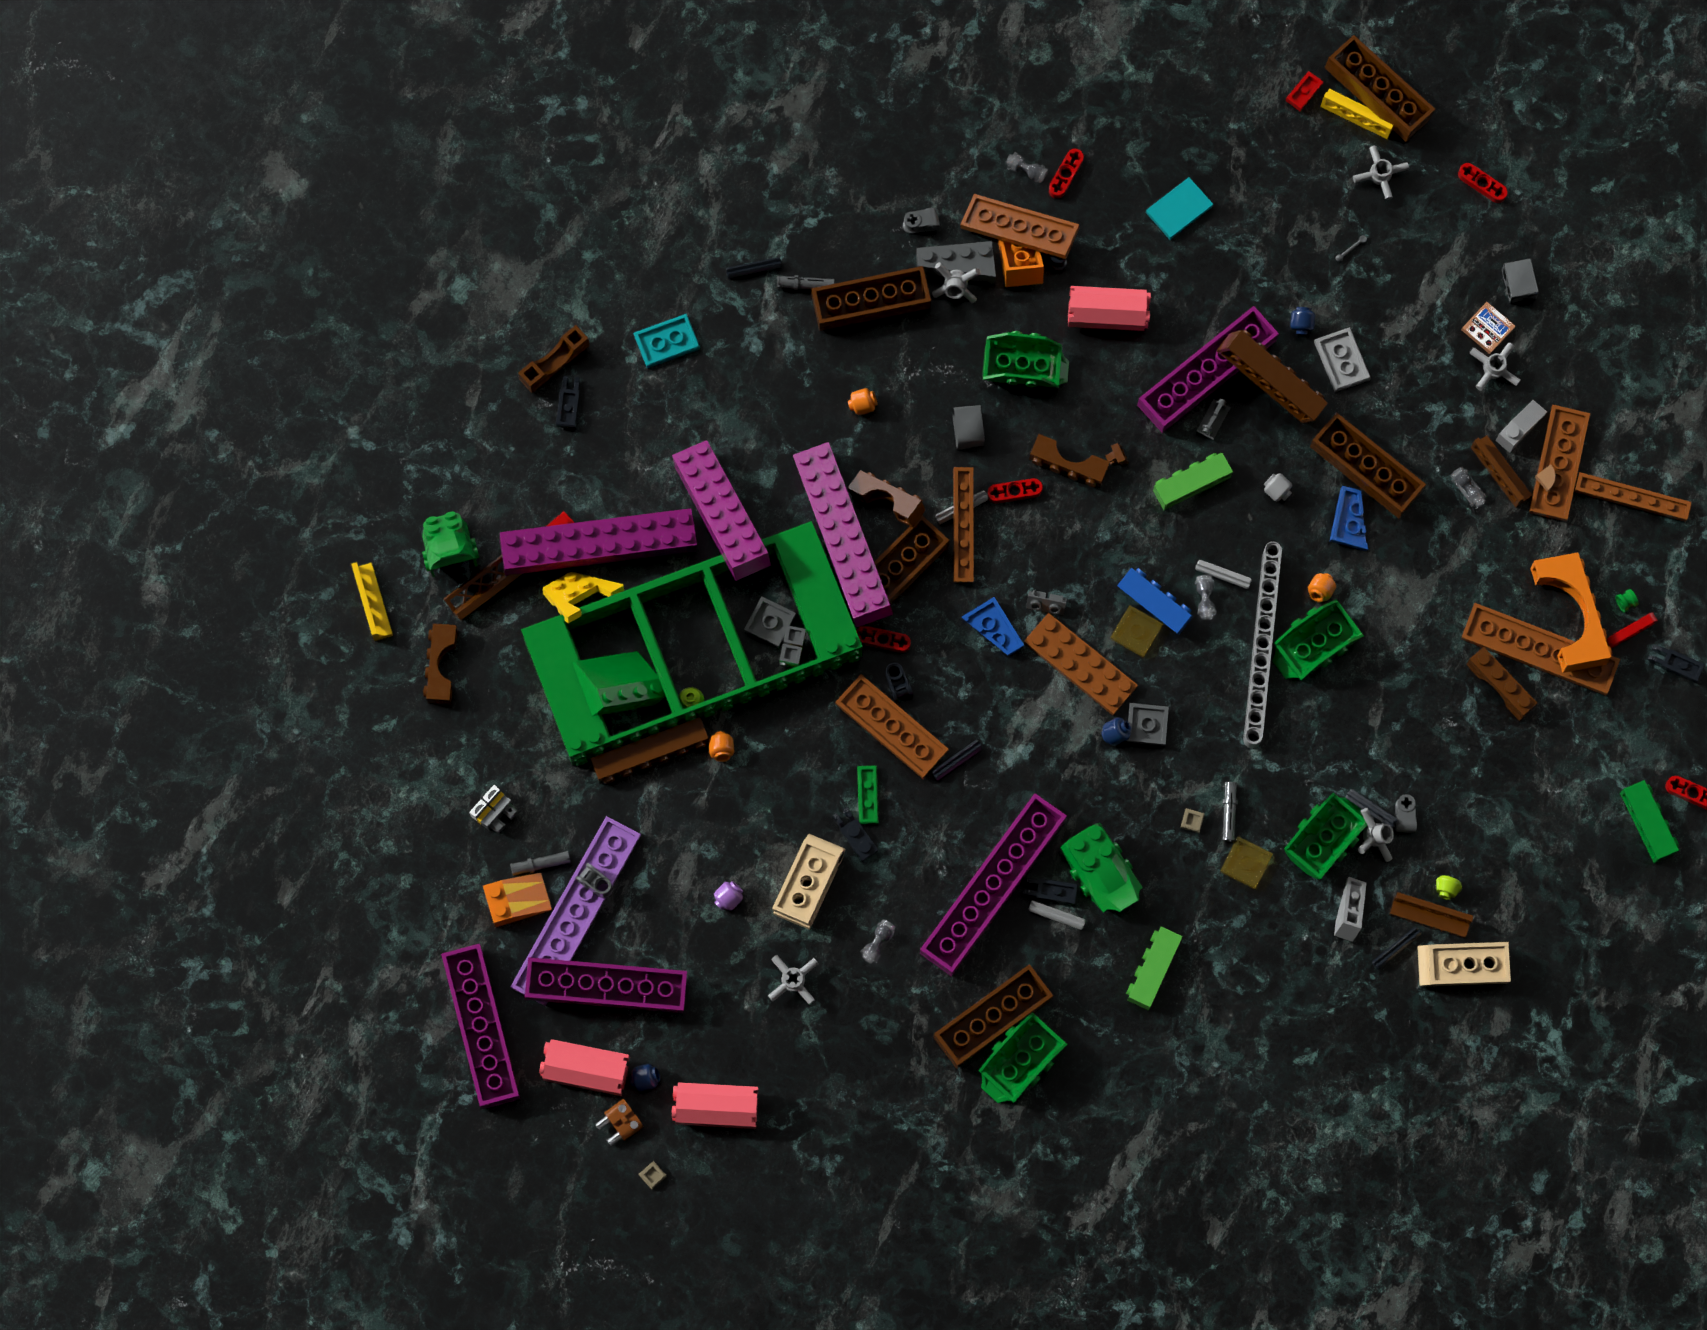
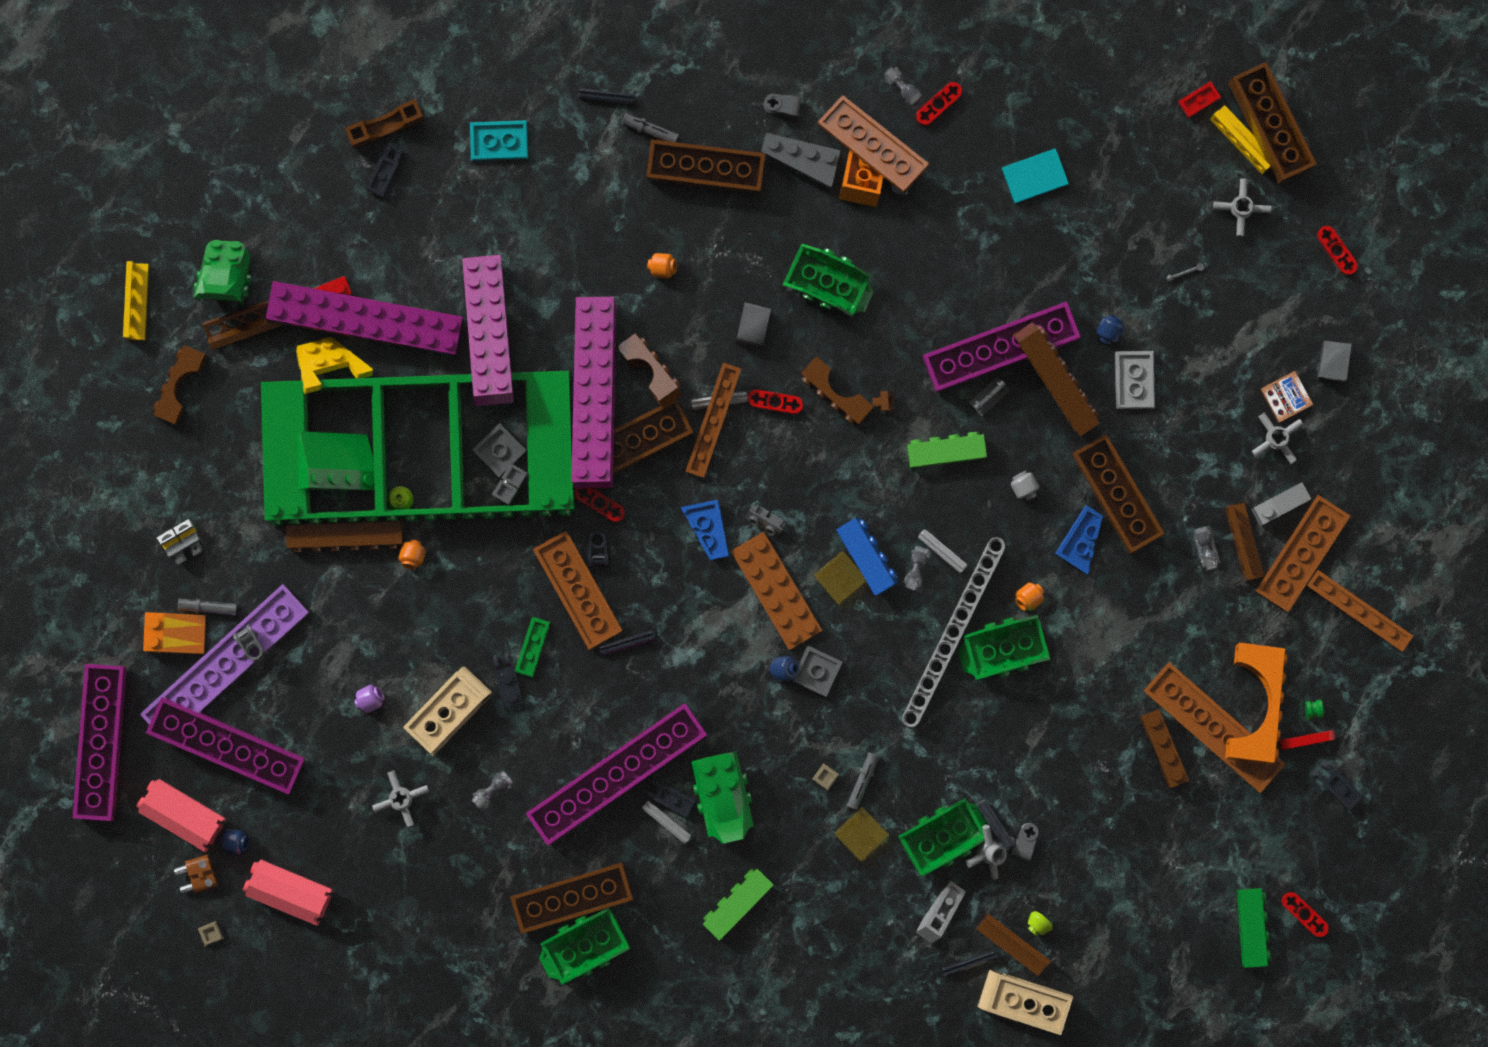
camera: 25 degrees right, 10 degrees up
(955, 283) = (791, 180): light grey bar -> none
(1108, 308) = (928, 255): coral brick -> none
(1546, 477) = (1283, 565): medium nougat tile -> none

